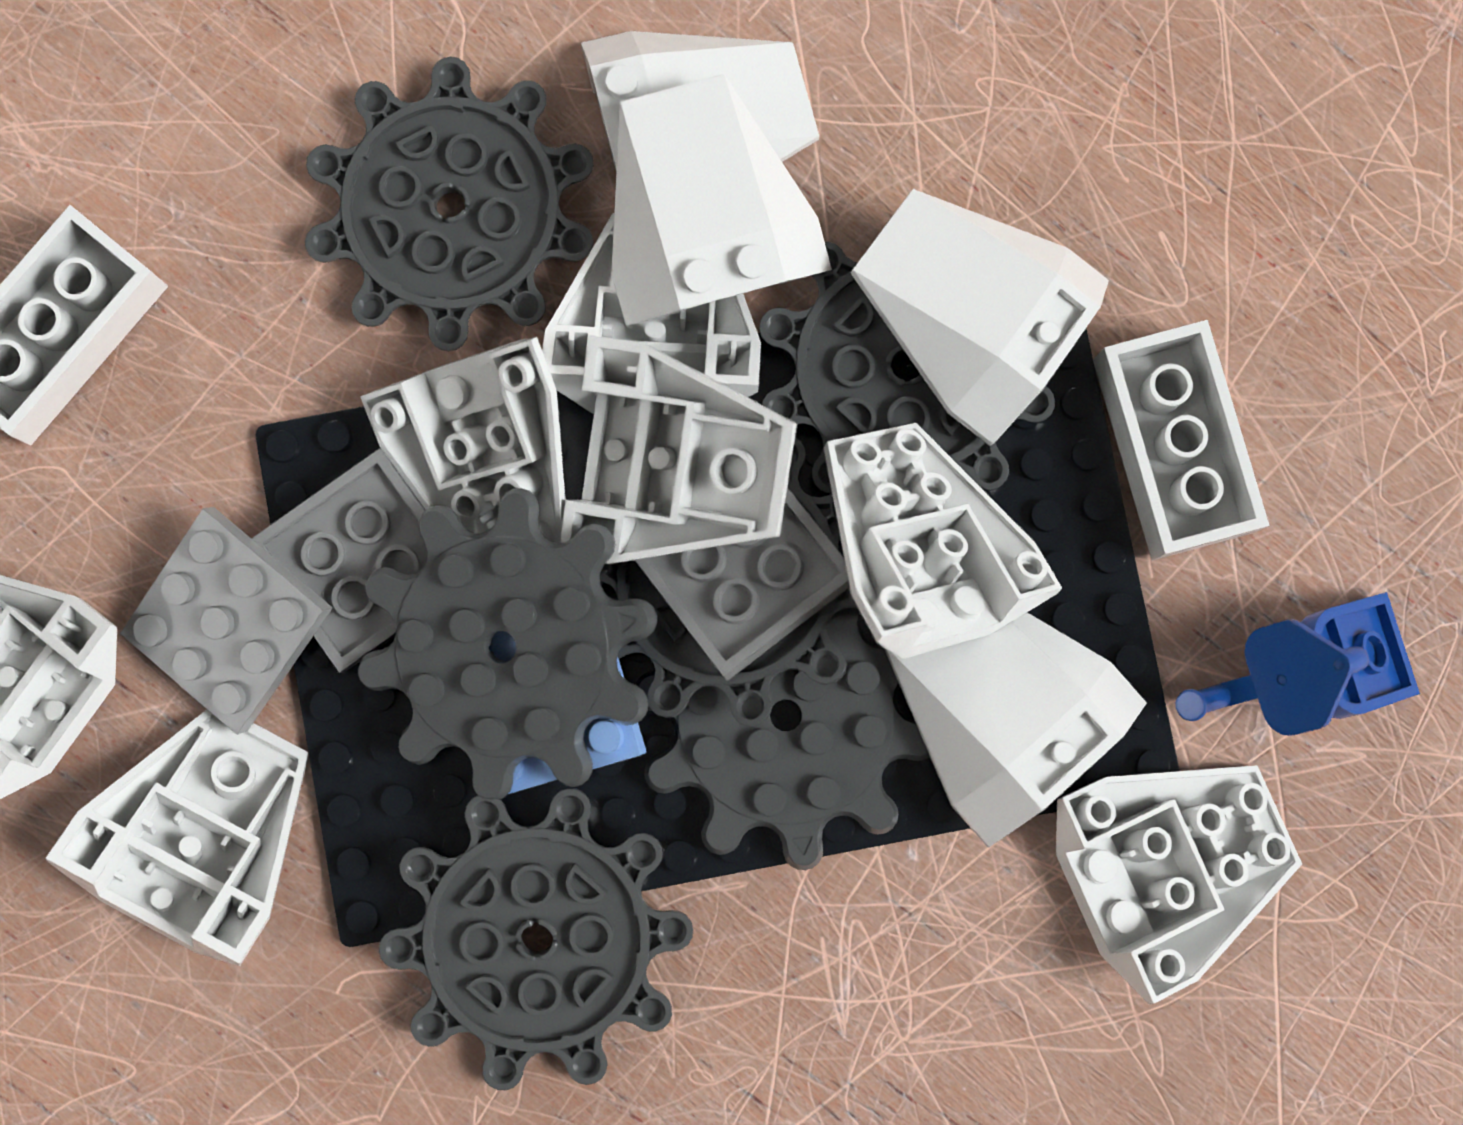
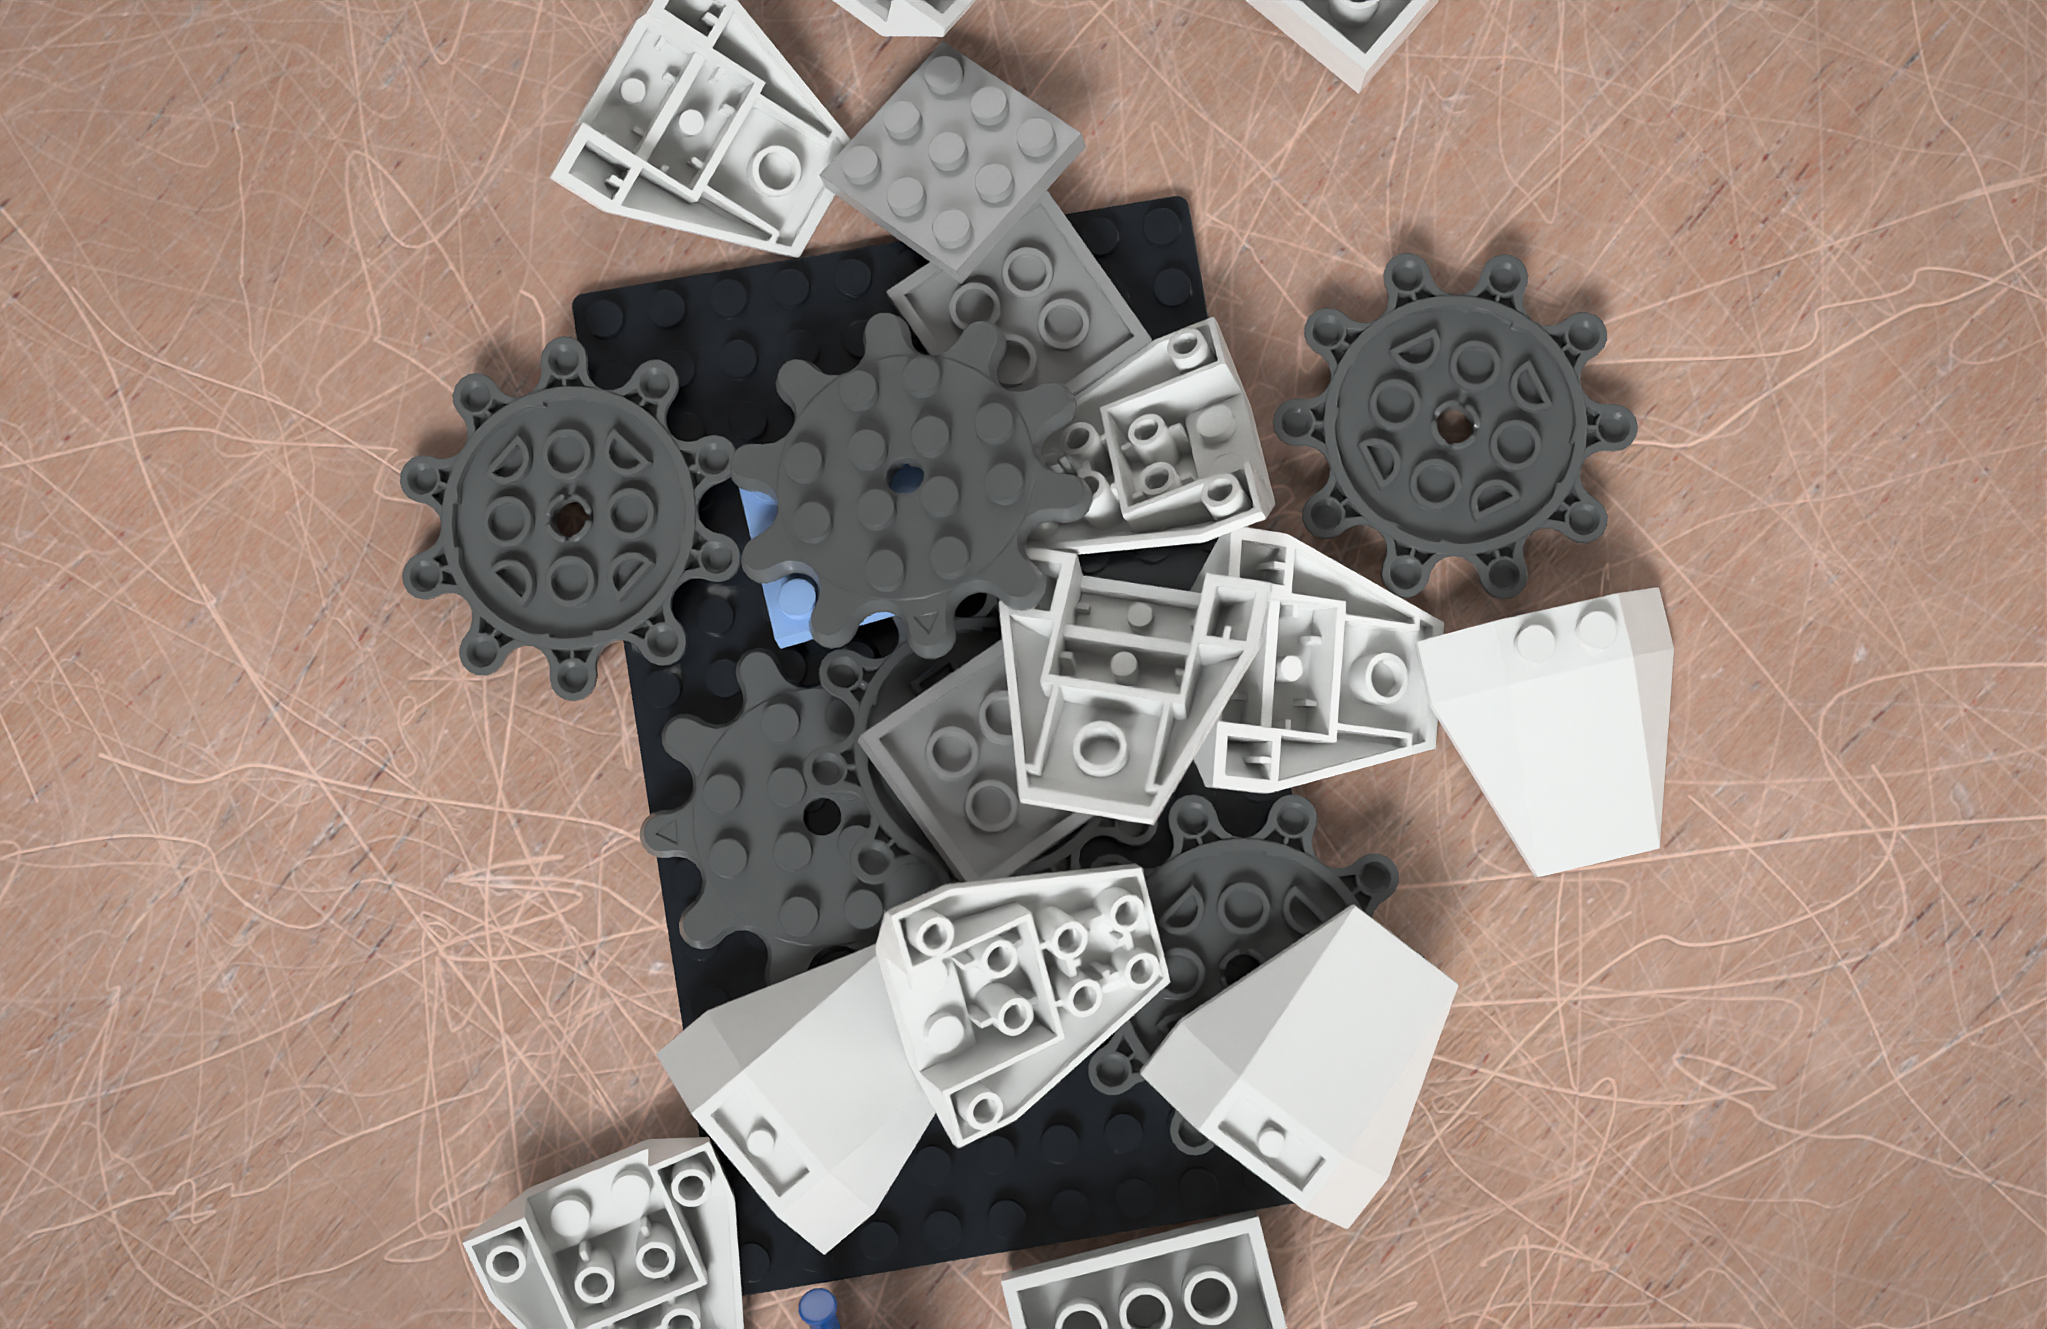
camera: 95 degrees right, 0 degrees up
(703, 204) = (1438, 728): white wedge -> none

